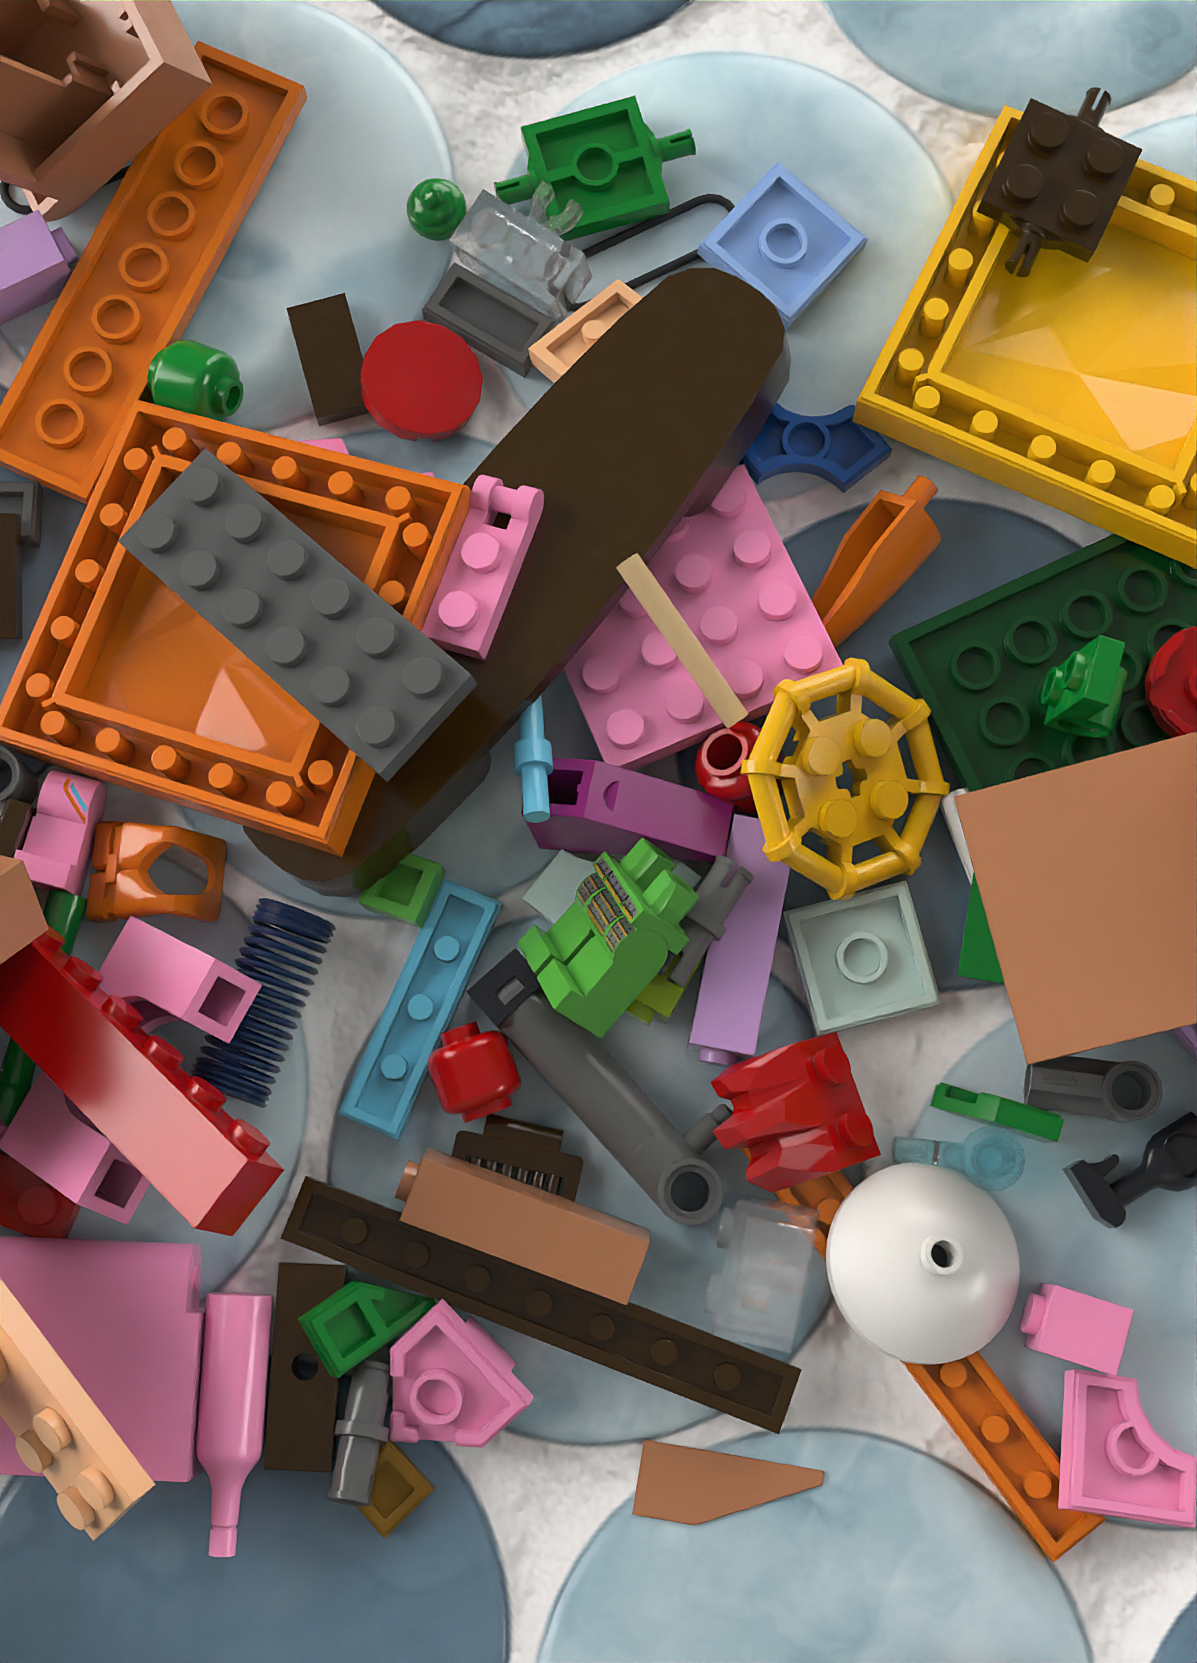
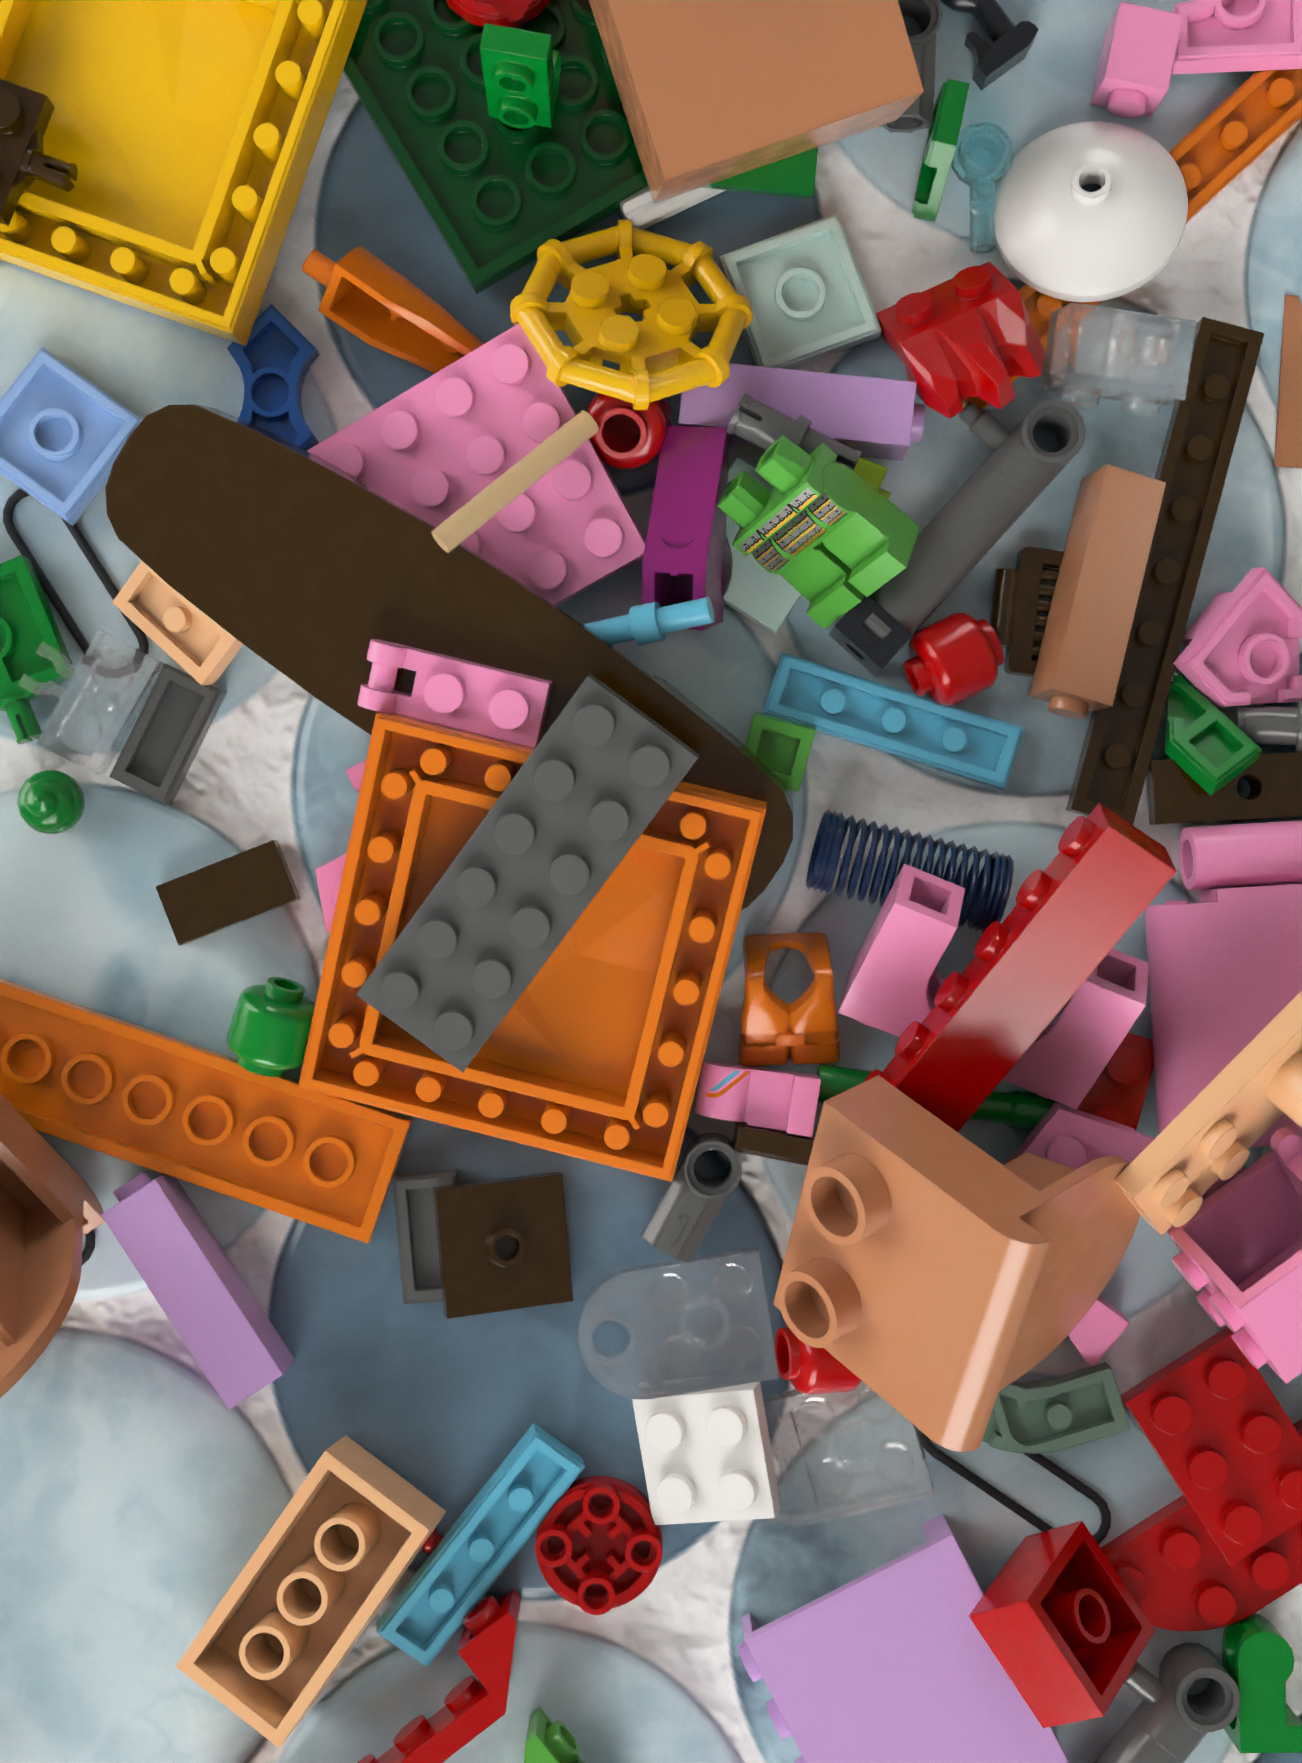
camera: 90 degrees left, 10 degrees up
(420, 381) = (246, 794): red tile -> none

